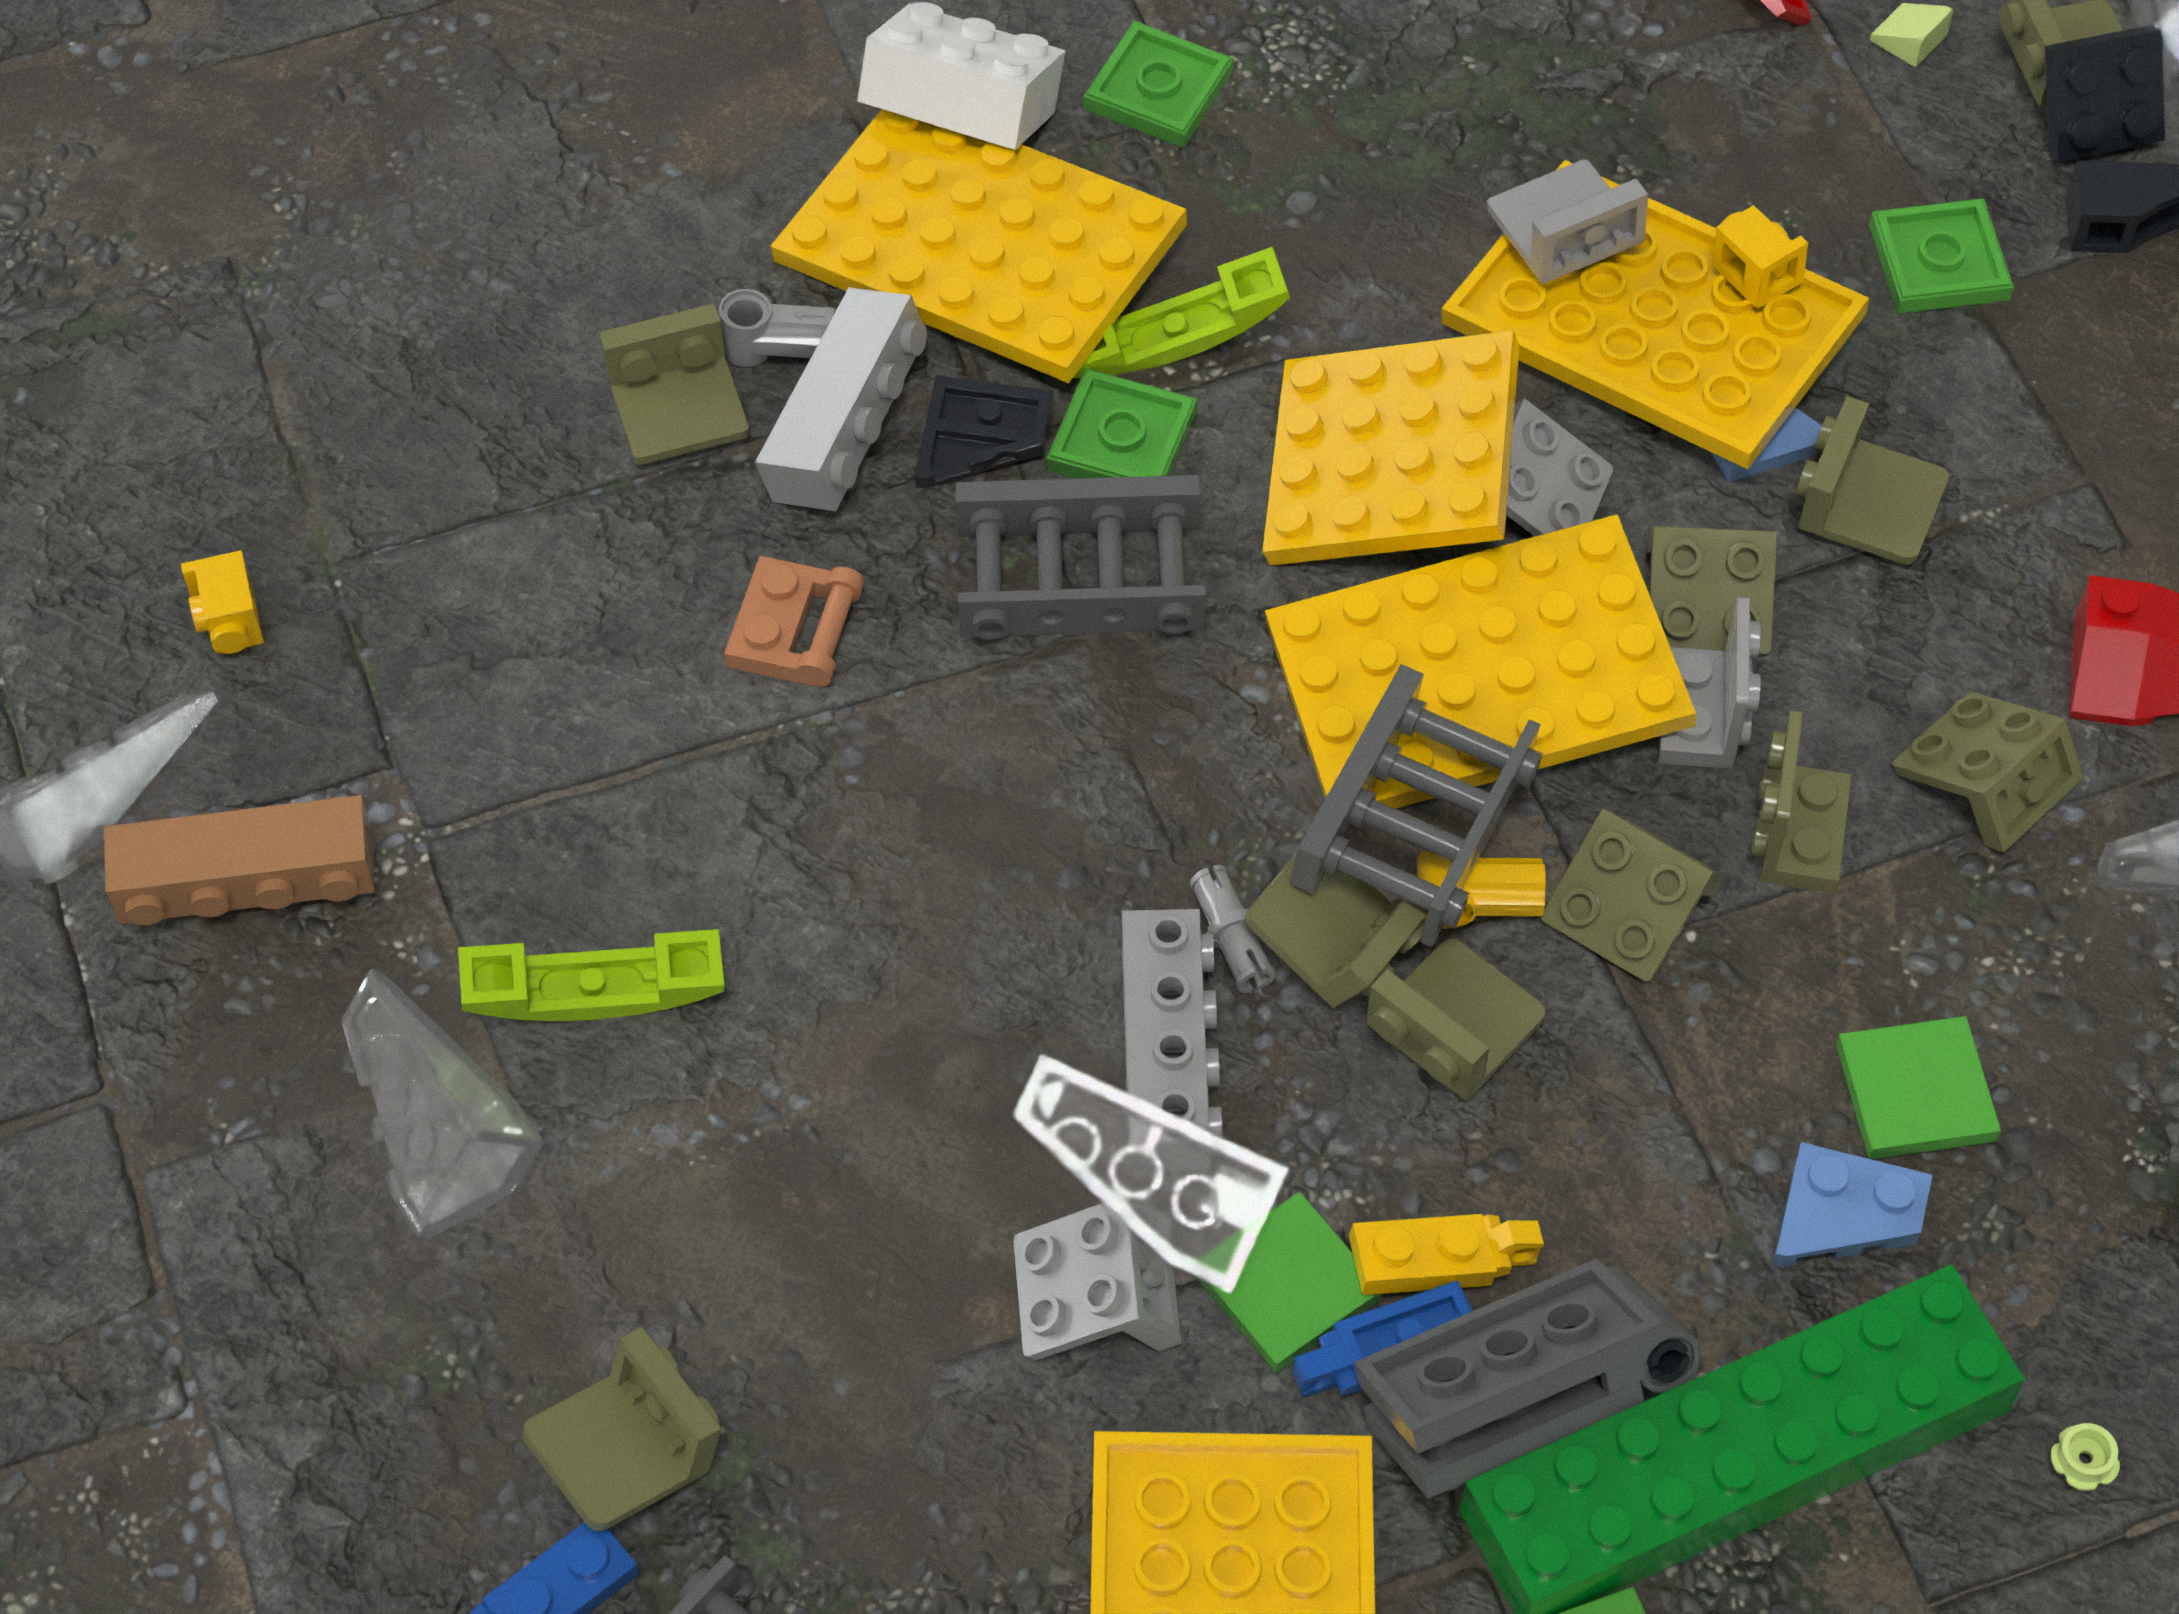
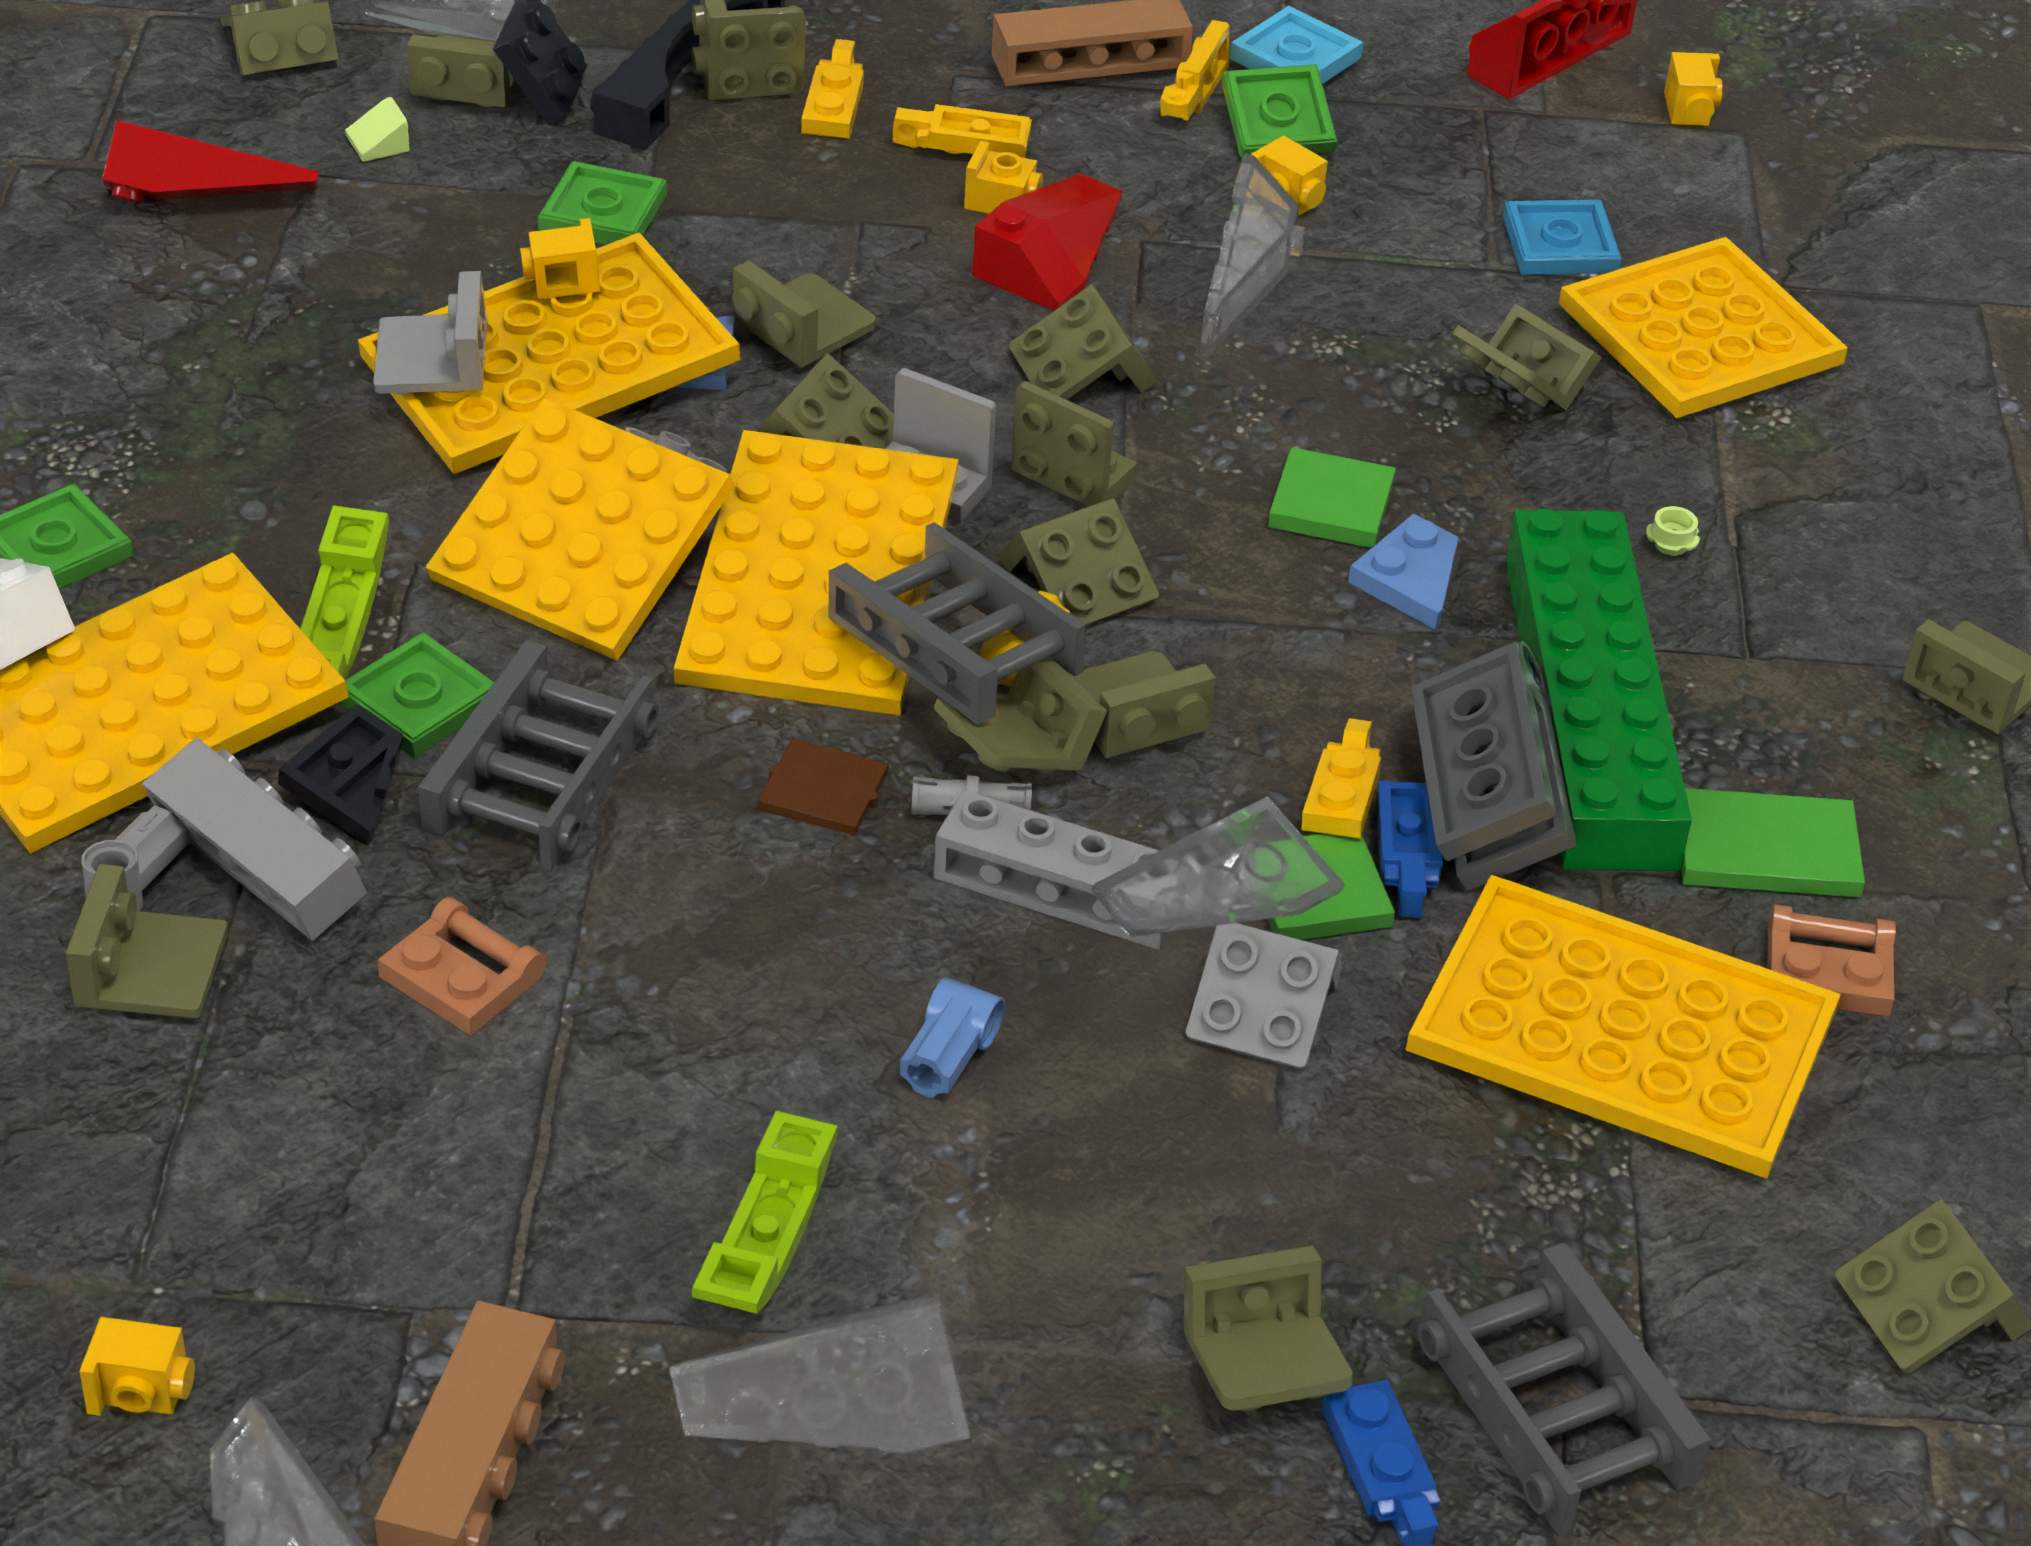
camera: 70 degrees left, 15 degrees down
(913, 1034) = (954, 1026): none -> medium blue piece
(1190, 801) = (823, 786): none -> reddish brown piece

